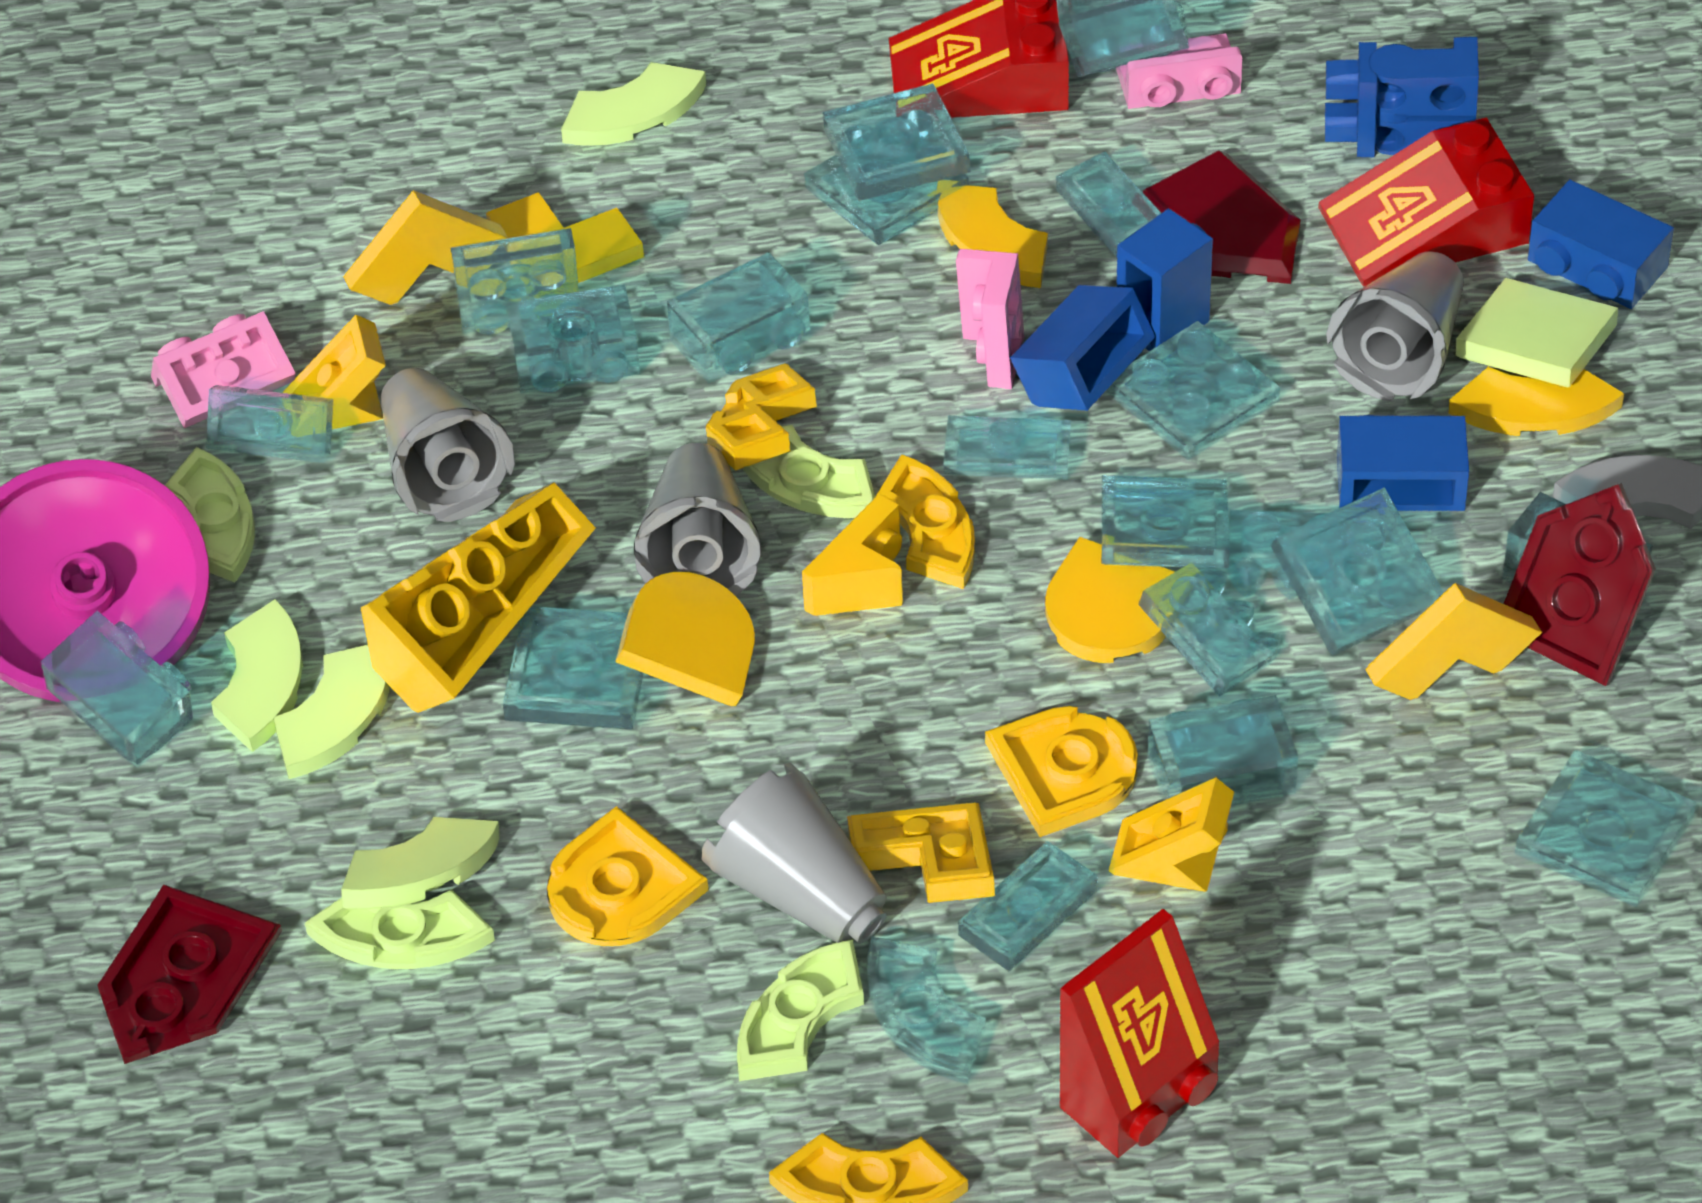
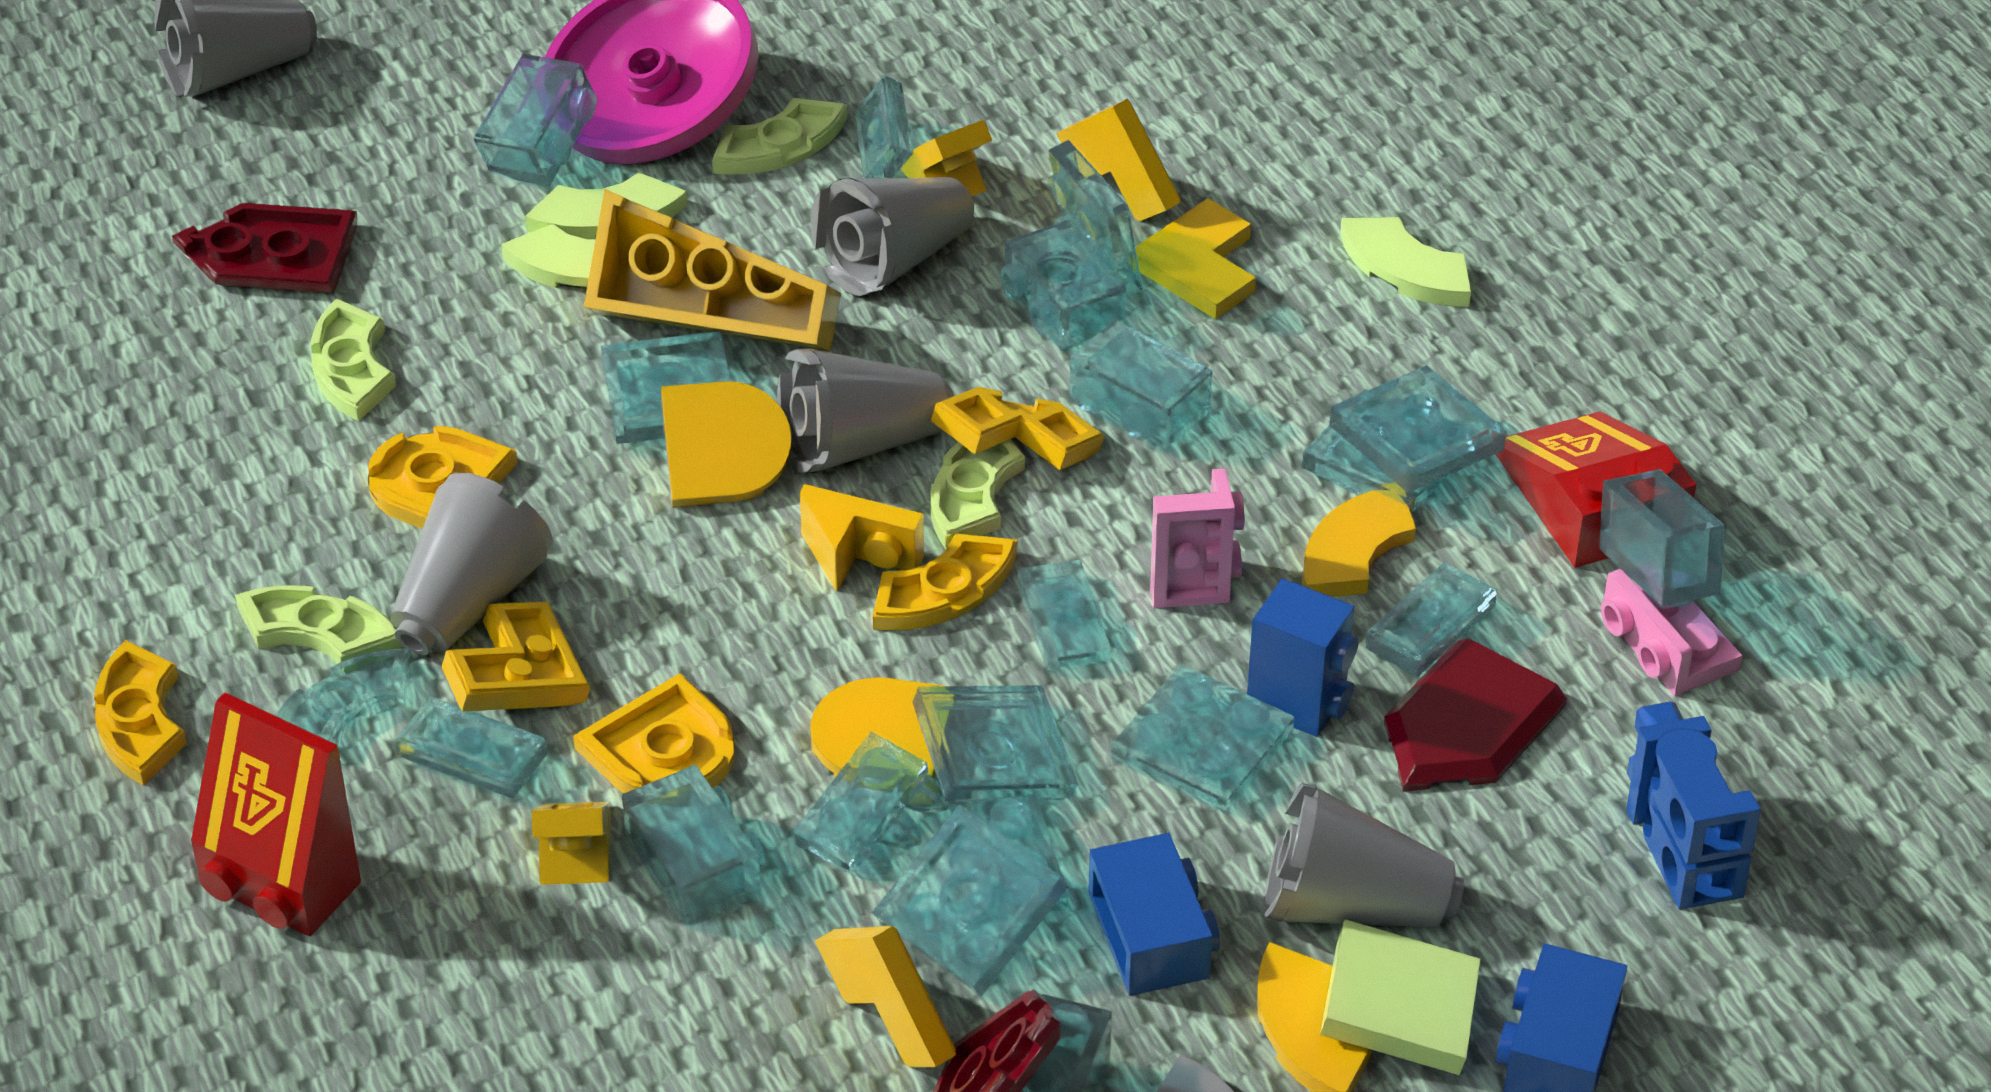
camera: 70 degrees right, 5 degrees down
(236, 354) = (942, 90): bright pink bracket -> none
(426, 862) = (425, 356): yellowish green tile -> none
(1082, 347) = (1191, 625): blue piece -> none
(1439, 195) = (1562, 873): red slope -> none

